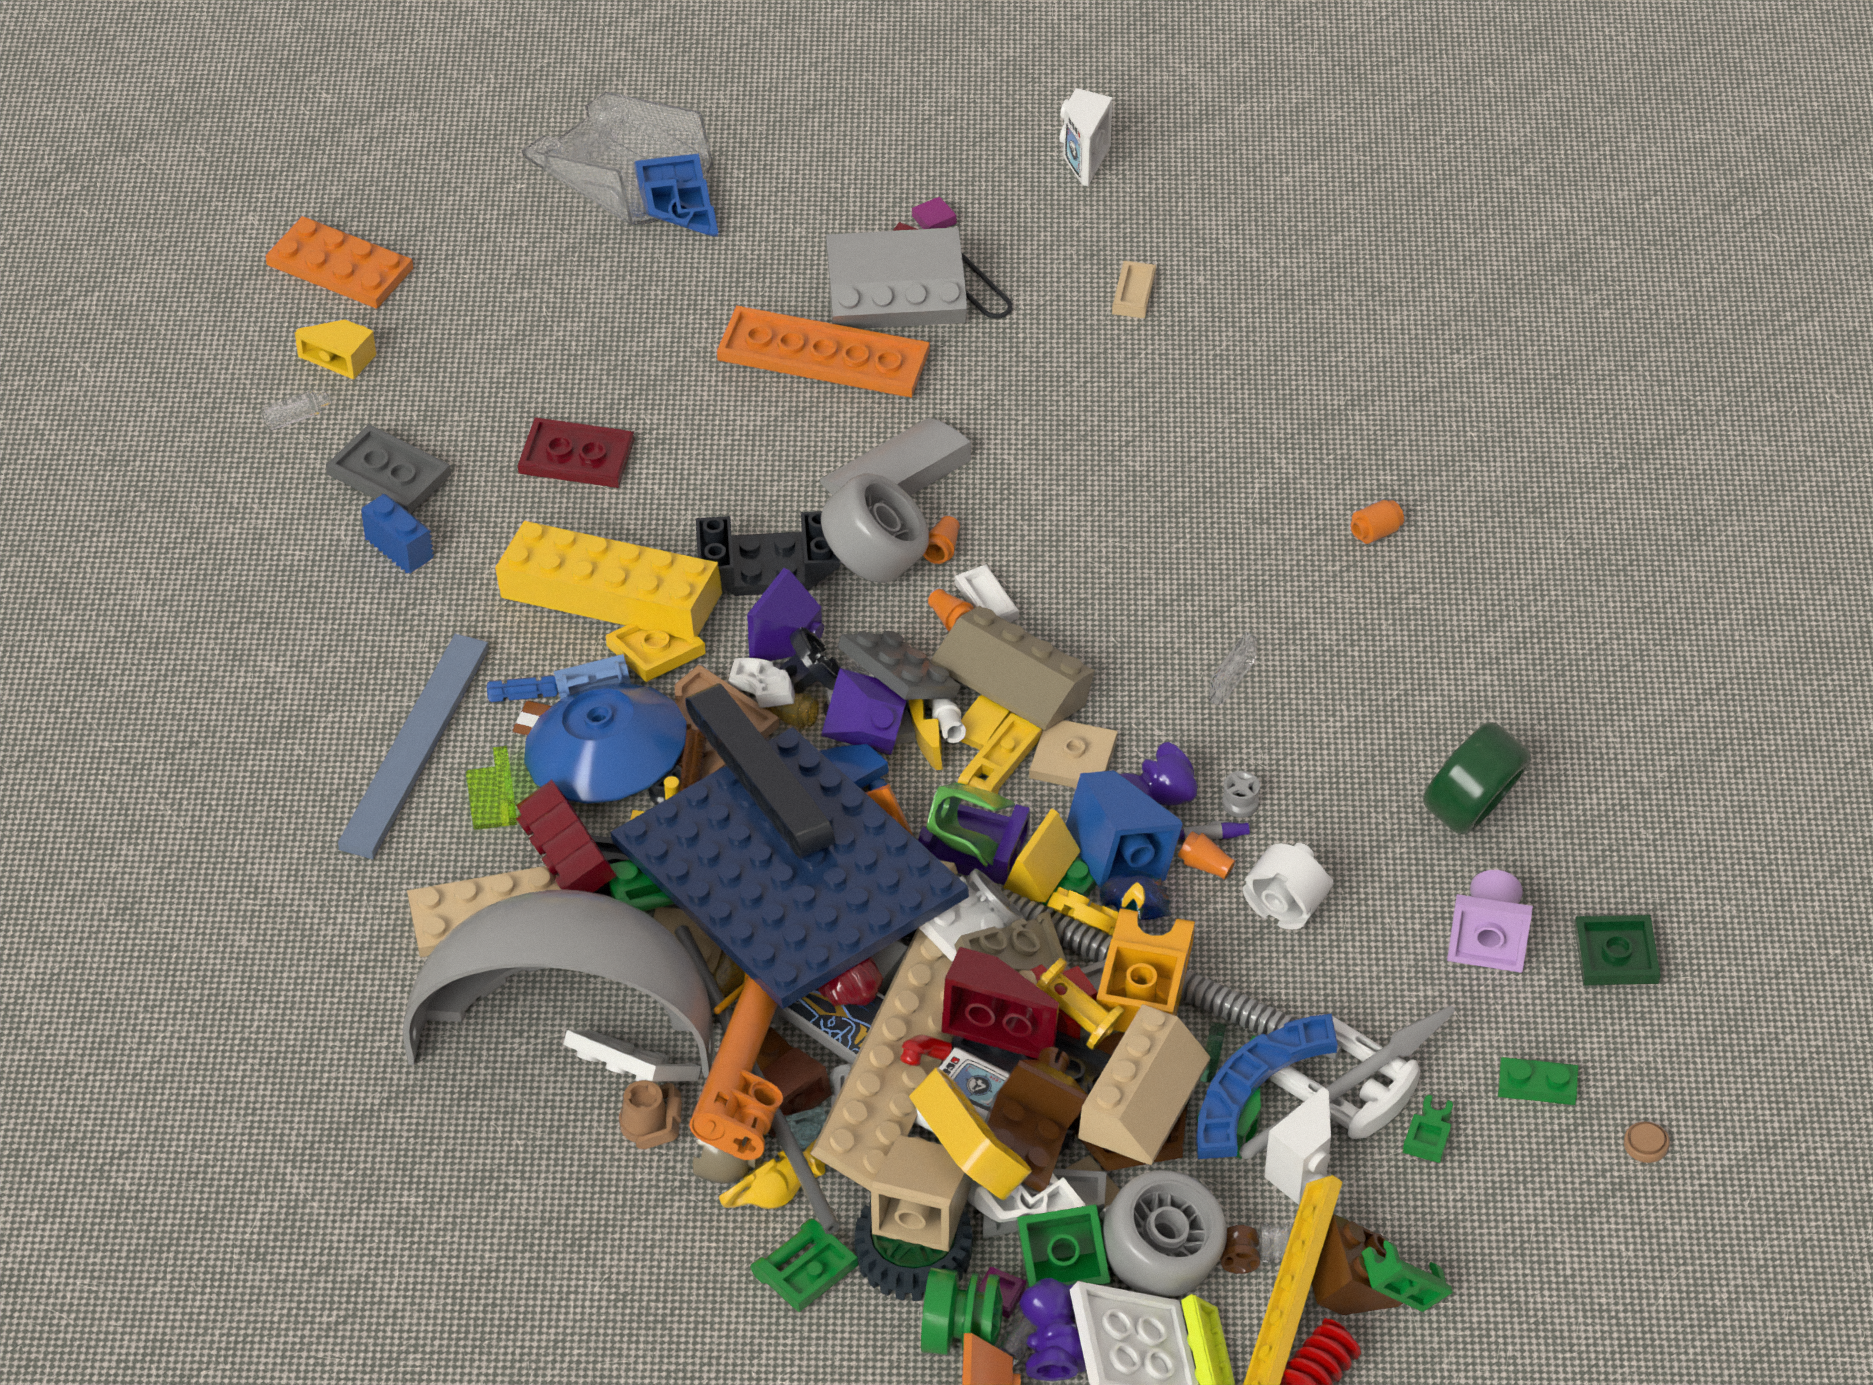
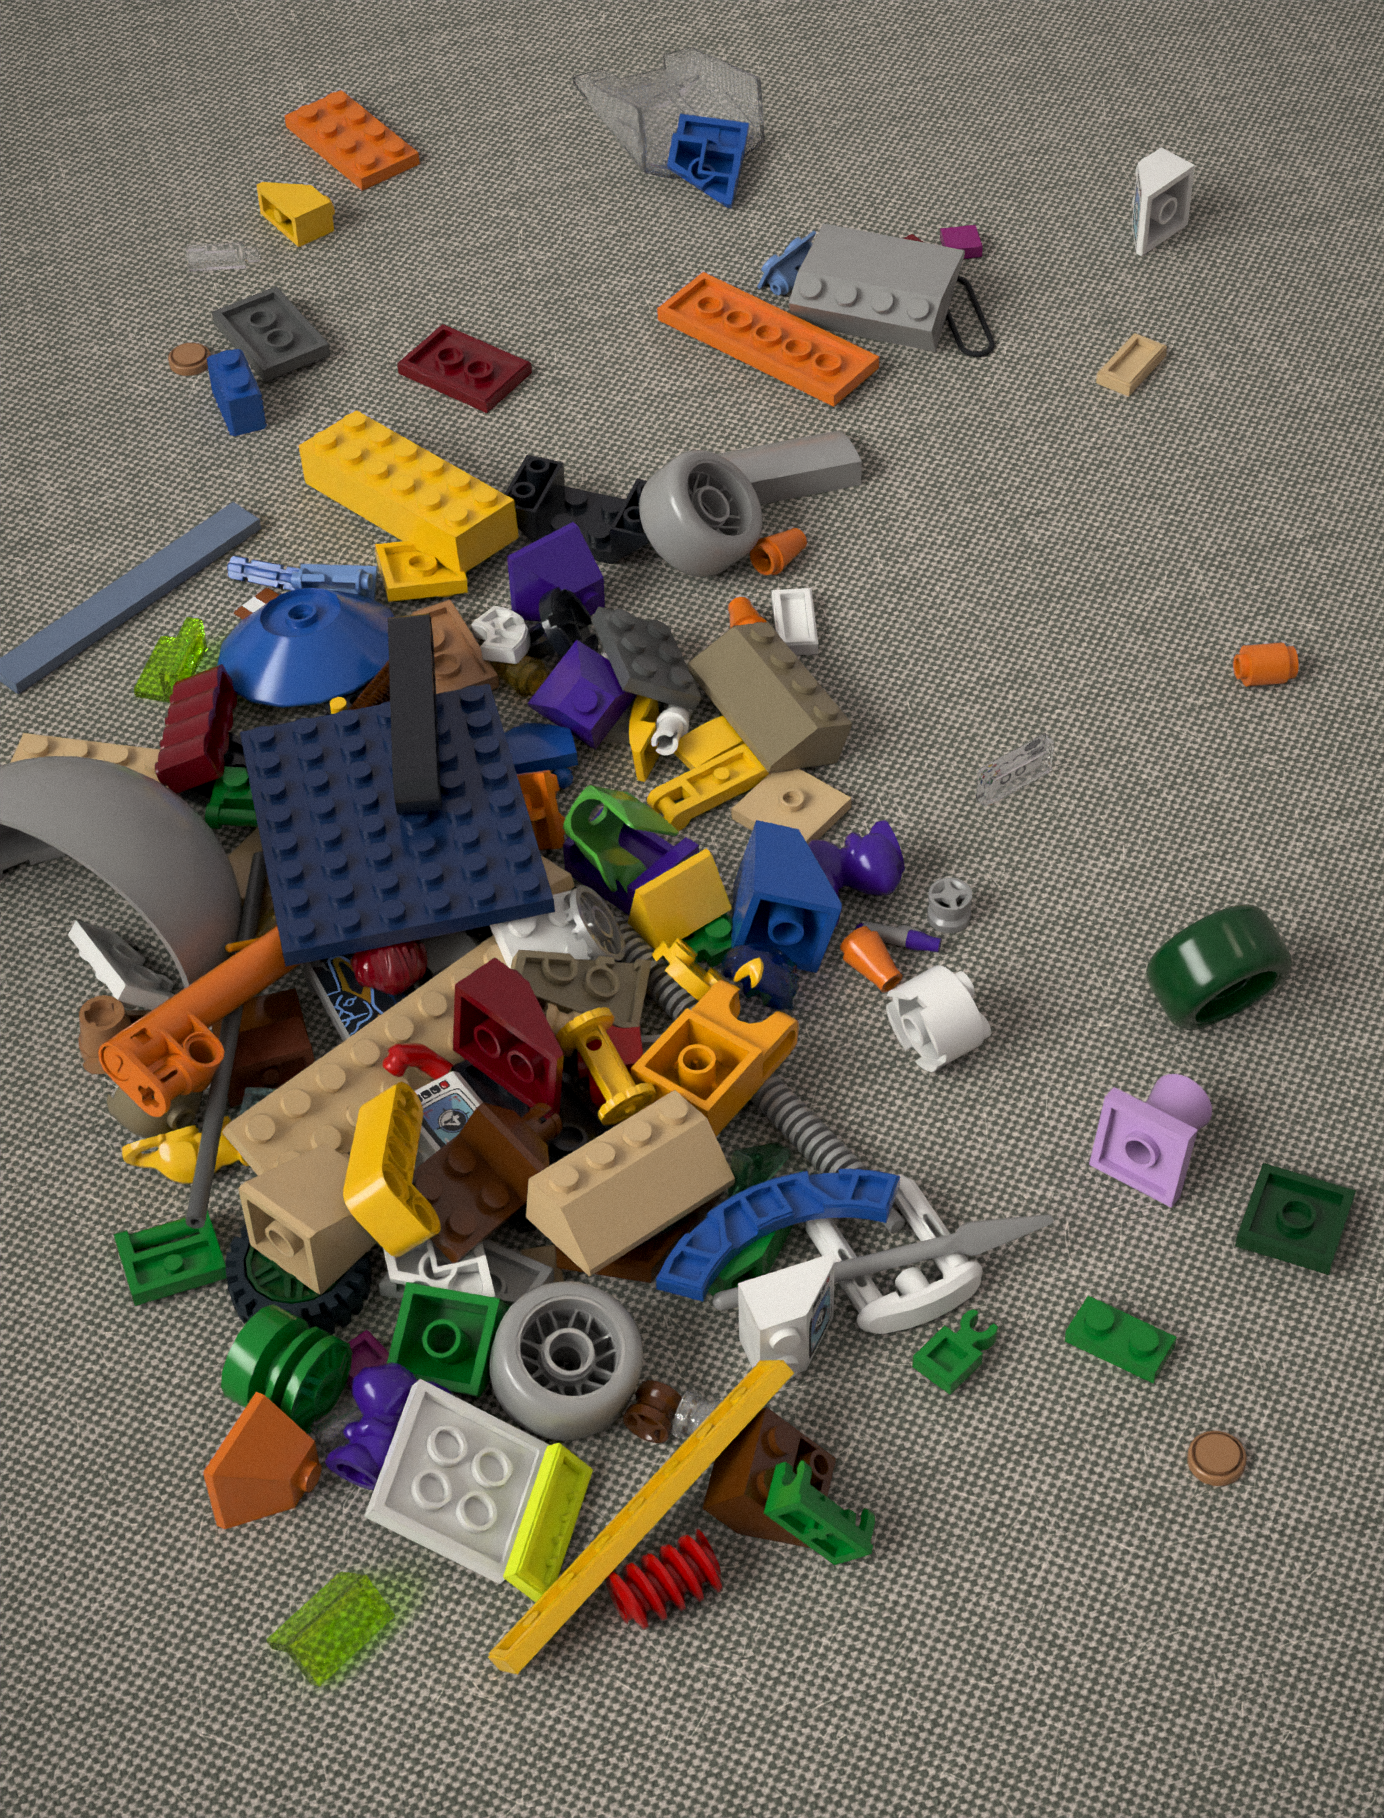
camera: 25 degrees right, 0 degrees up
(325, 513) = (189, 359): none -> medium nougat piece
(799, 285) = (781, 271): none -> medium blue hinge

